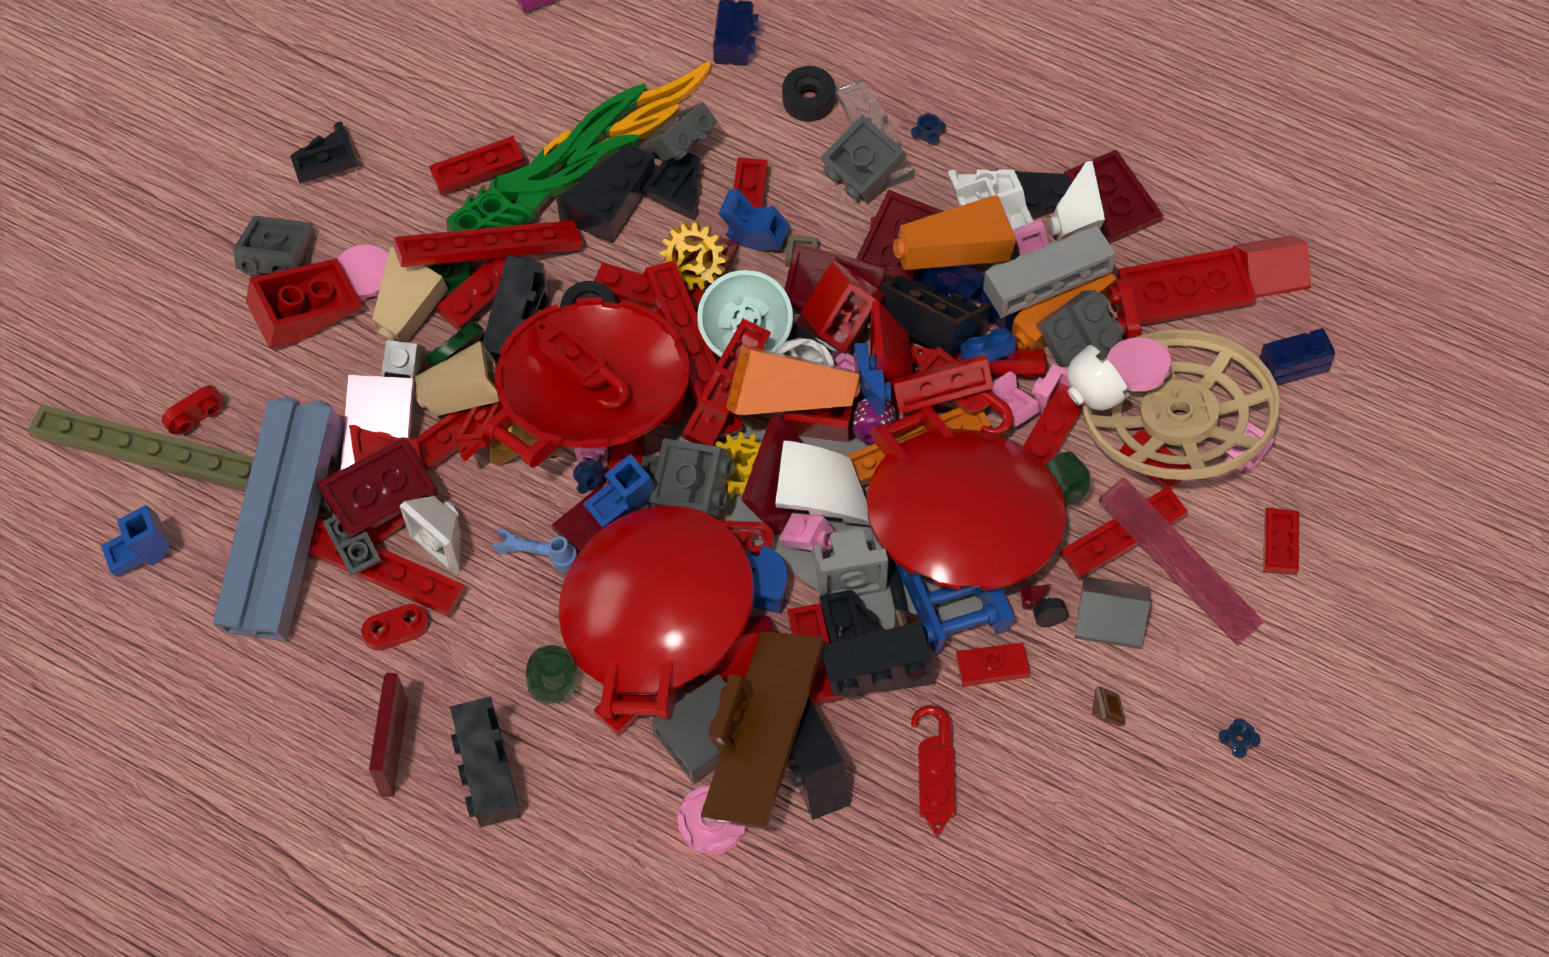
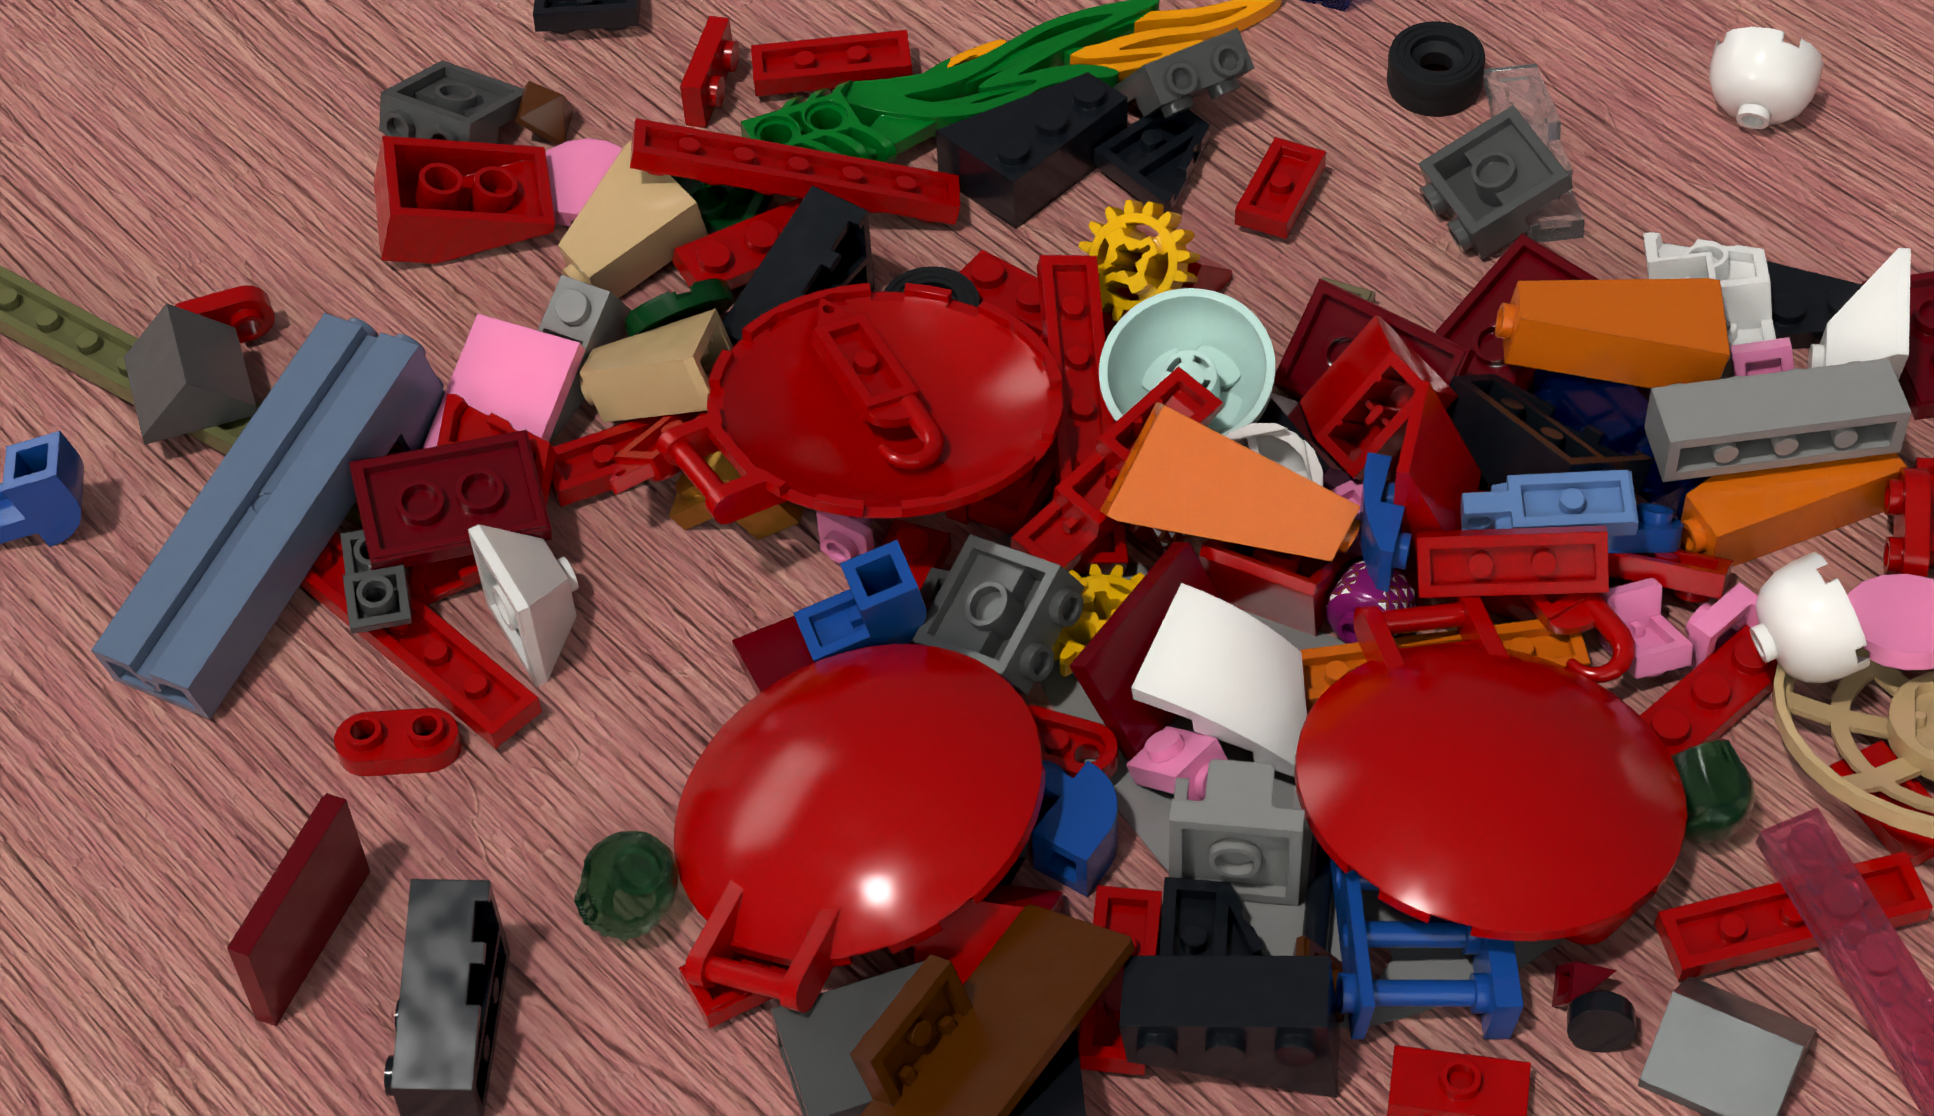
camera: 20 degrees right, 10 degrees down
(194, 449) = (187, 375): none -> dark grey slope
(326, 235) = (545, 113): none -> reddish brown slope
(411, 197) = (706, 75): none -> red plate
(557, 549) = (720, 678): medium blue brick -> none
(588, 475) = (817, 566): dark blue plate -> none
(750, 226) = (1263, 250): blue brick -> none
(931, 122) = (1632, 163): dark blue plate -> none
(954, 347) = (1555, 501): none -> medium blue hinge
(982, 63) = (1763, 77): none -> white cylinder
(1080, 324) = (1811, 516): dark grey plate -> none

